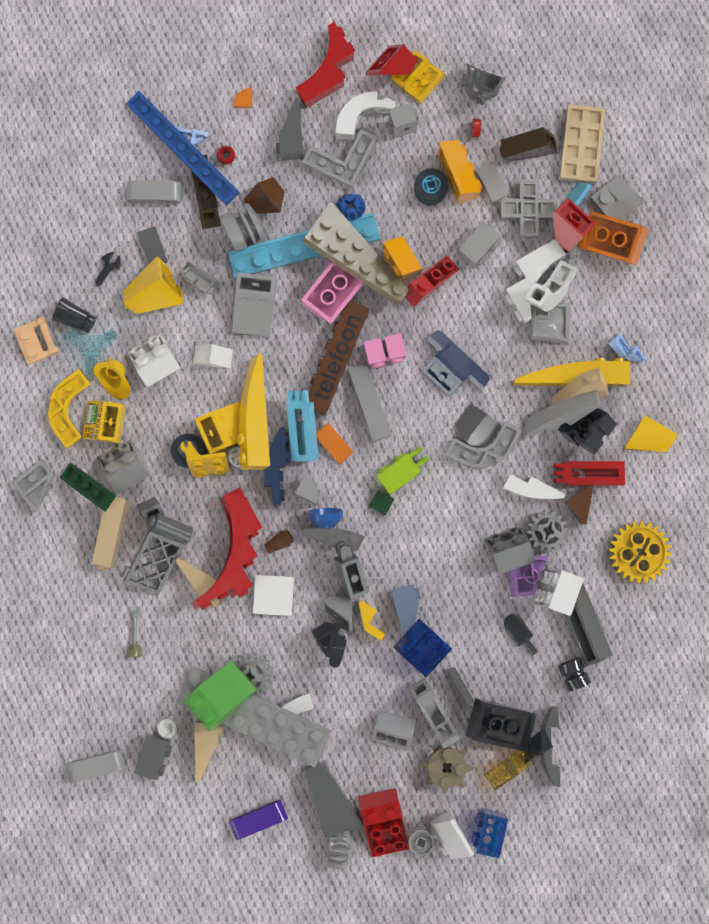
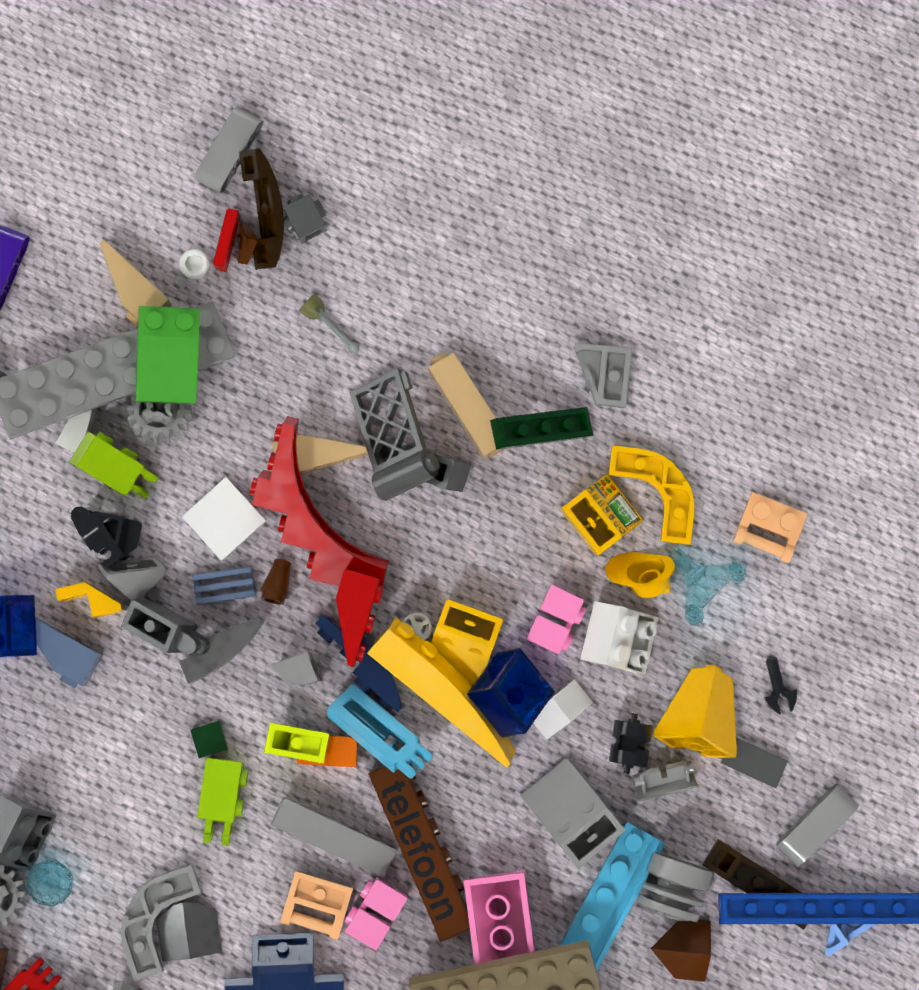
camera: 130 degrees right, 0 degrees up
(73, 316) = (756, 595): black plant -> none
(94, 697) = (304, 217): none -> dark grey brick
(105, 718) = (269, 207): none -> dark brown slope
(123, 466) = (530, 489): light grey slope -> none
(133, 712) = (247, 243): none -> reddish brown tile
(140, 724) = (226, 240): none -> red tile
(152, 757) = (177, 219): dark grey brick -> none
(163, 398) = (563, 607): none -> bright pink piece
(189, 453) = (474, 577): yellow plate -> none
(196, 309) = (630, 743): none -> black wheel
(225, 383) = (511, 692): none -> clear blue piece
(226, 149) = (786, 960): red plate -> none
(252, 493) = (354, 605): none -> red slope
(291, 555) = (198, 589): none -> sand blue tile
(299, 672) = (109, 465): none -> lime hinge
(325, 517) = (252, 661): blue piece -> none
(343, 459) = (296, 742): none -> neon yellow slope
(402, 384) = (319, 895): none -> light nougat plate
(516, 510) = (49, 883): none -> clear light blue hair
(532, 489) = (57, 925): white slope -> none

